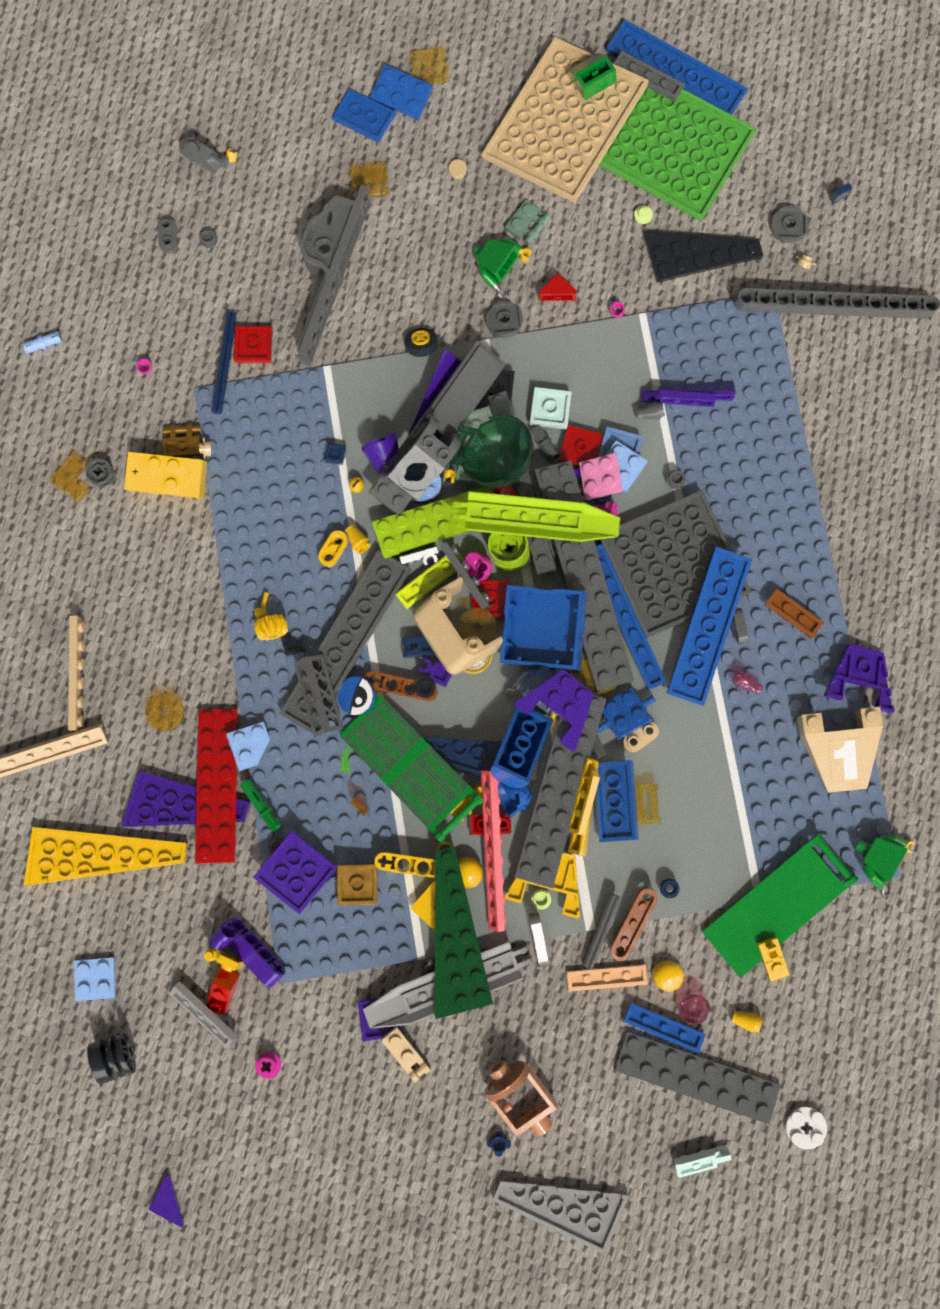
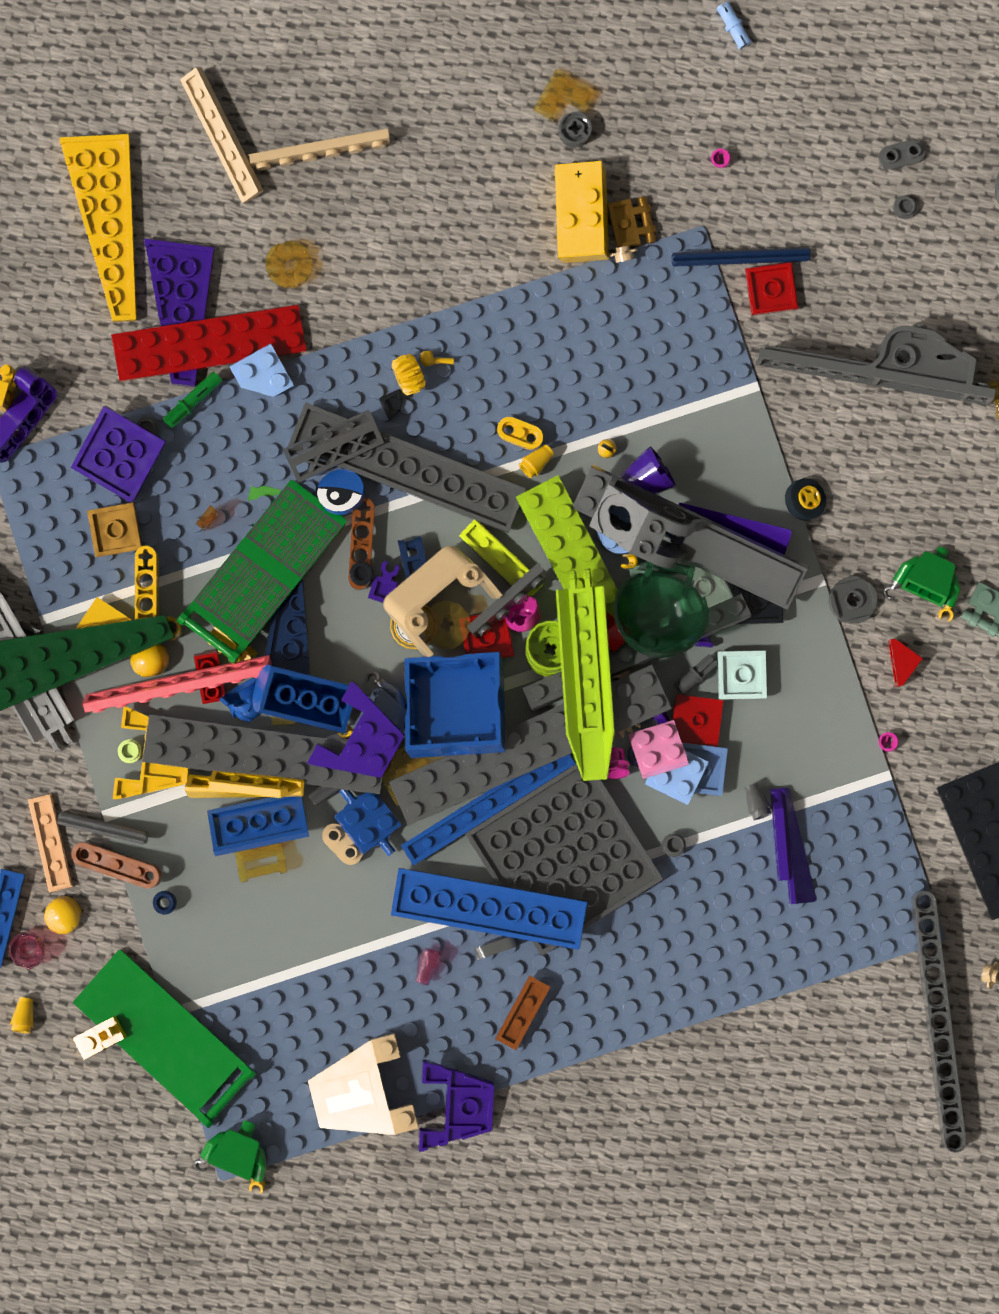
camera: 75 degrees right, 5 degrees up
(335, 453) = (642, 415): dark blue tile -> none
(423, 552) = (530, 543): plate -> none
(538, 939) = (82, 754): beam -> none

